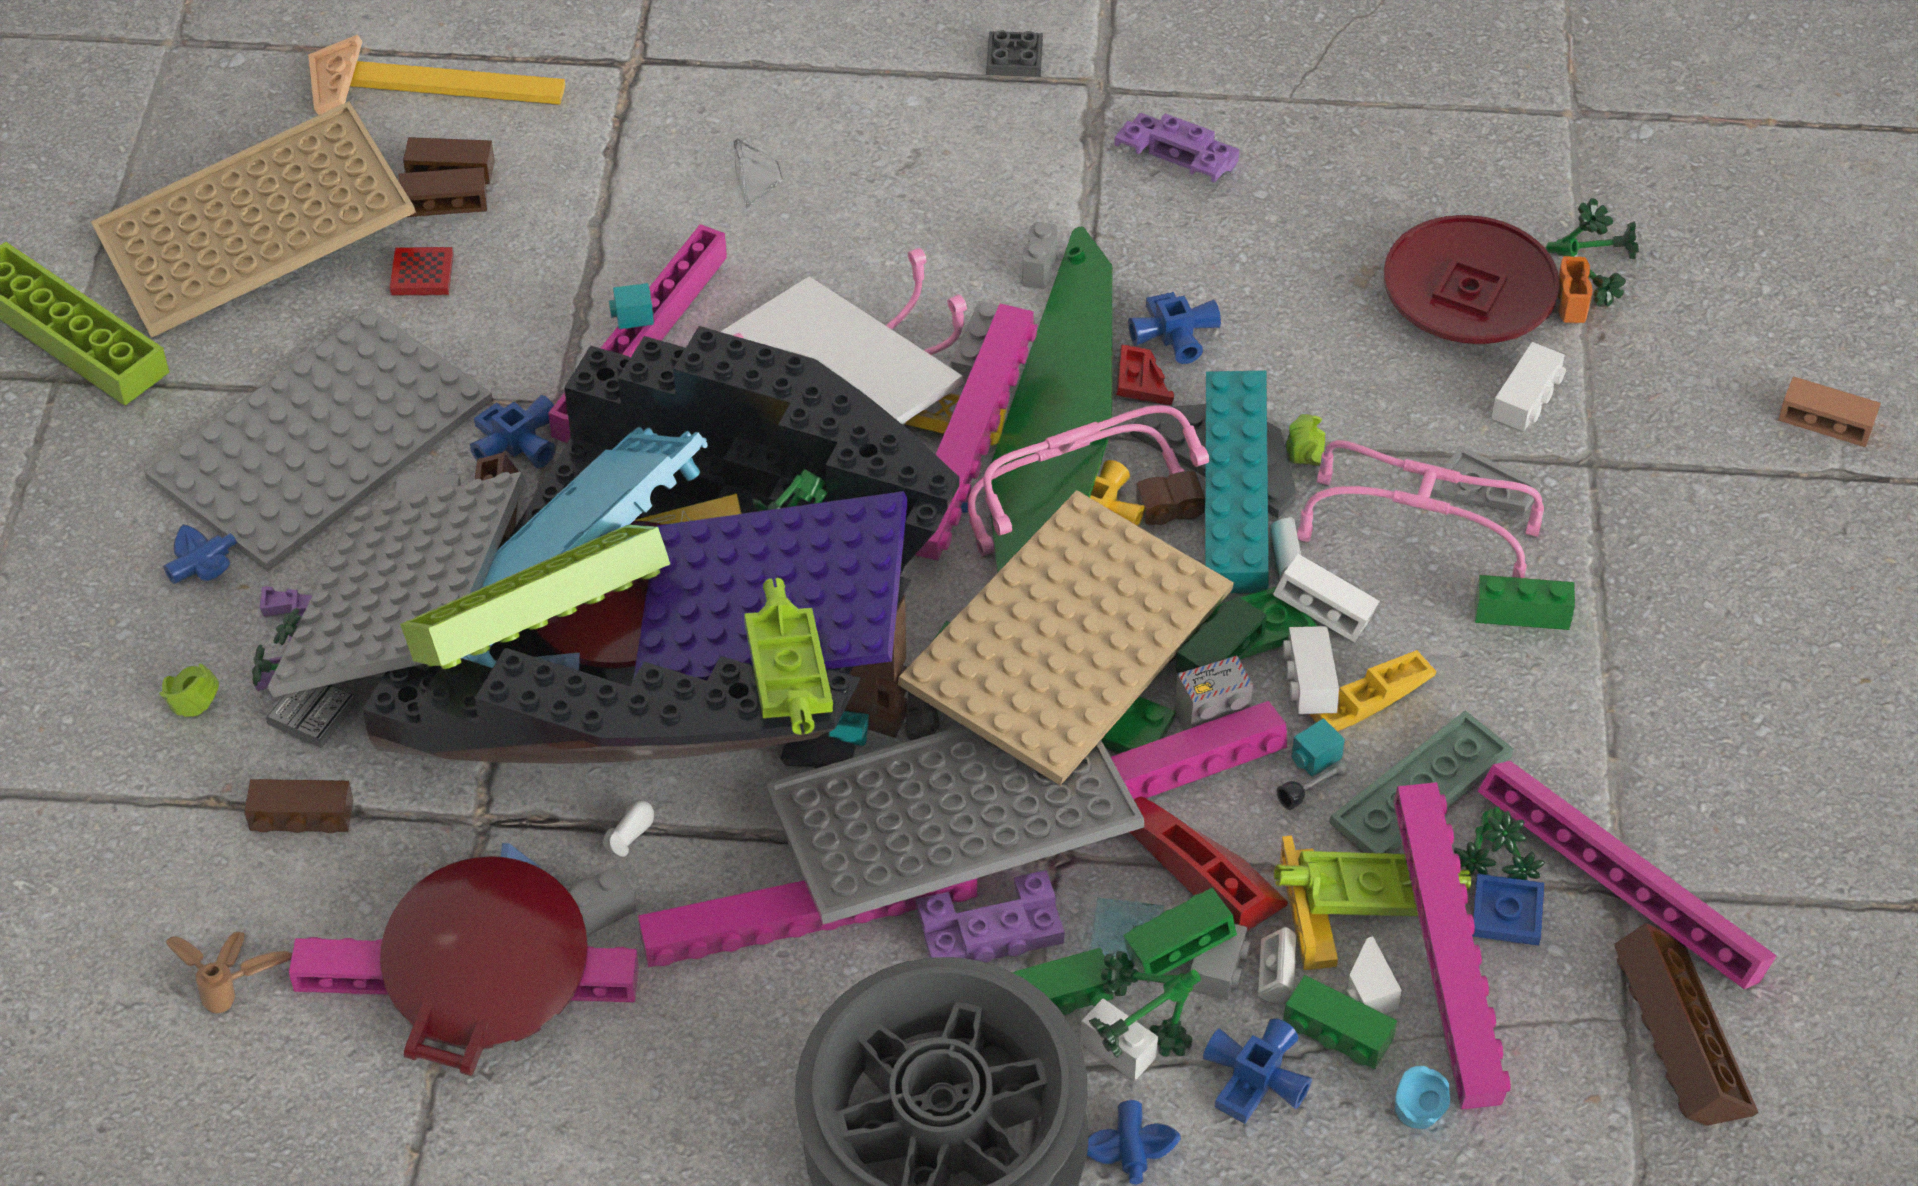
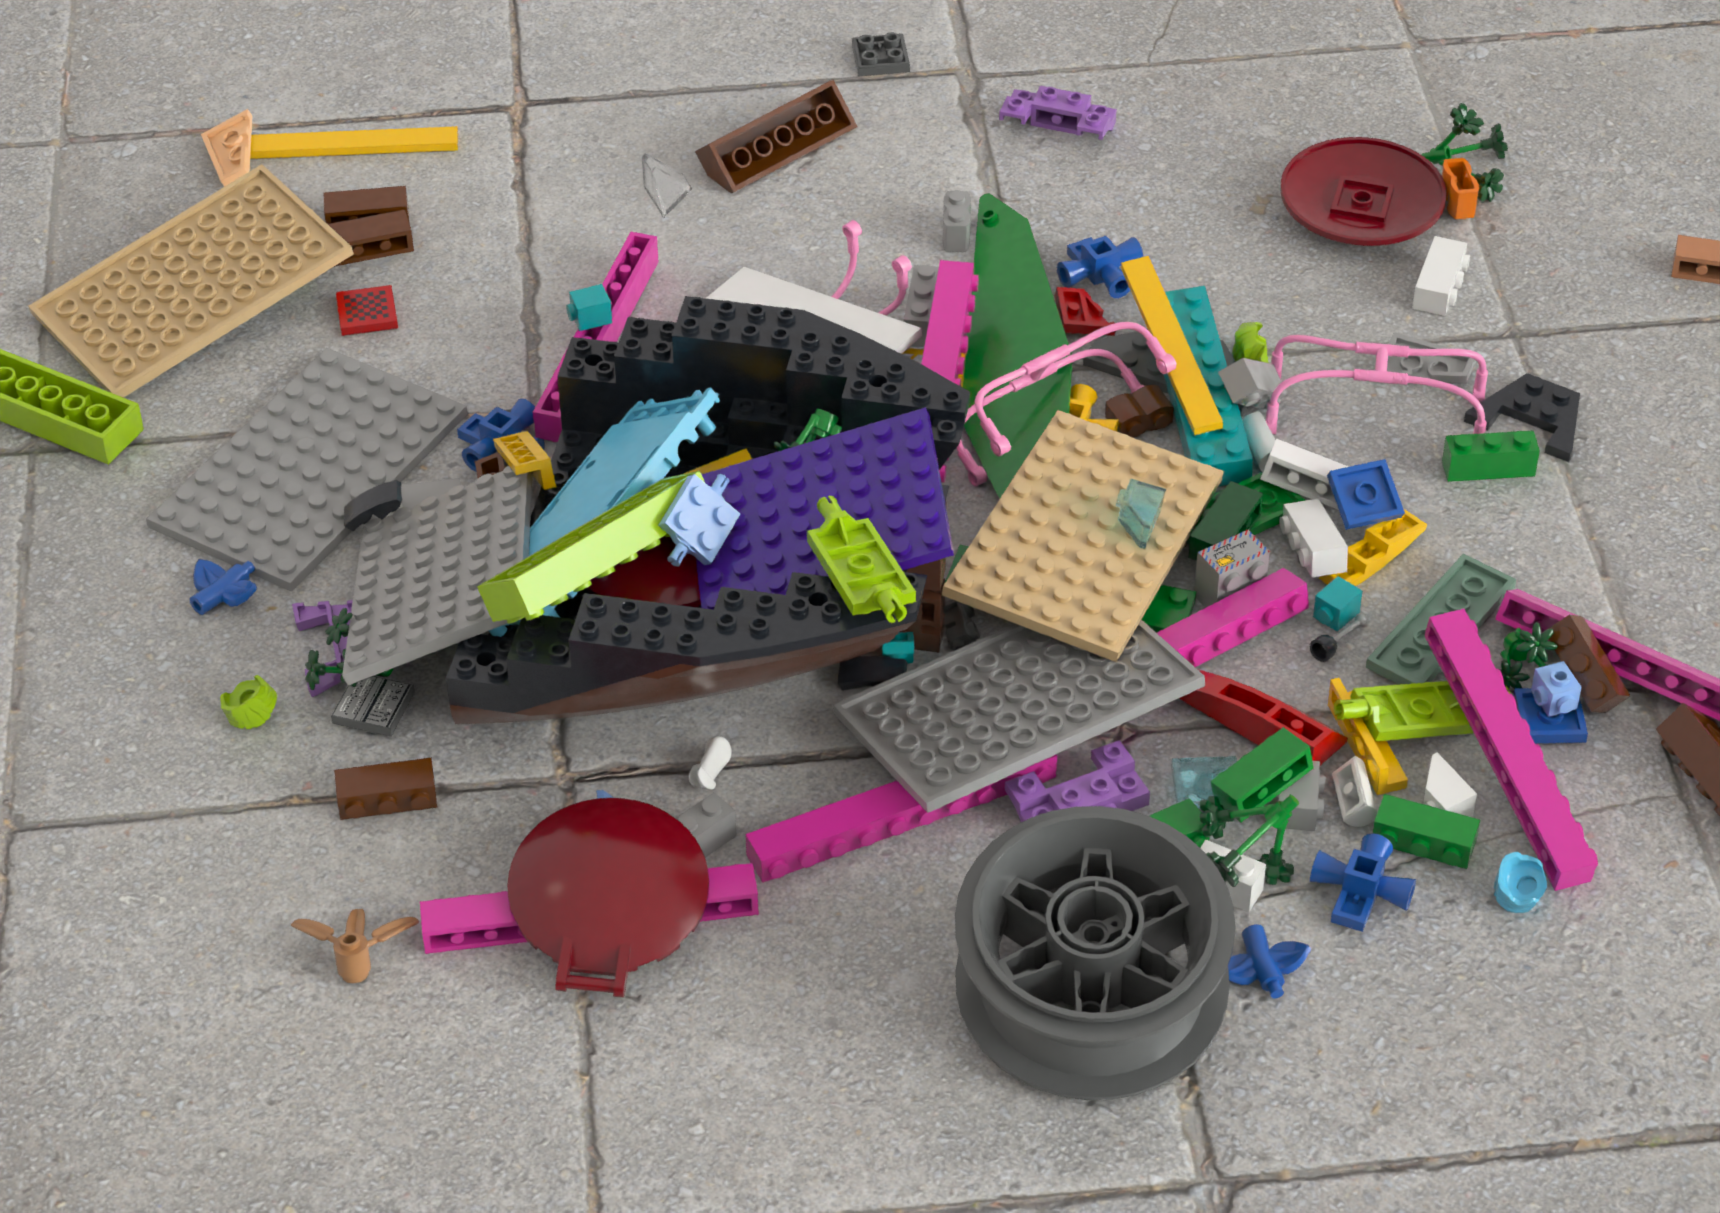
camera: 10 degrees left, 5 degrees down
(365, 490) = (375, 501): none -> black slope
(520, 466) = (526, 455): none -> yellow fence
(648, 579) = (699, 520): none -> light blue plate
(882, 135) = (777, 138): none -> reddish brown slope
(1127, 619) = (1140, 510): none -> clear light blue slope
(1213, 434) = (1163, 325): none -> yellow tile
(1288, 486) = (1251, 382): none -> light grey brick
(1375, 630) = (1365, 494): none -> blue plate
(1517, 883) = (1555, 689): none -> light blue brick
(1557, 861) = (1588, 663): none -> reddish brown brick
(1594, 549) = (1539, 405): none -> black wing

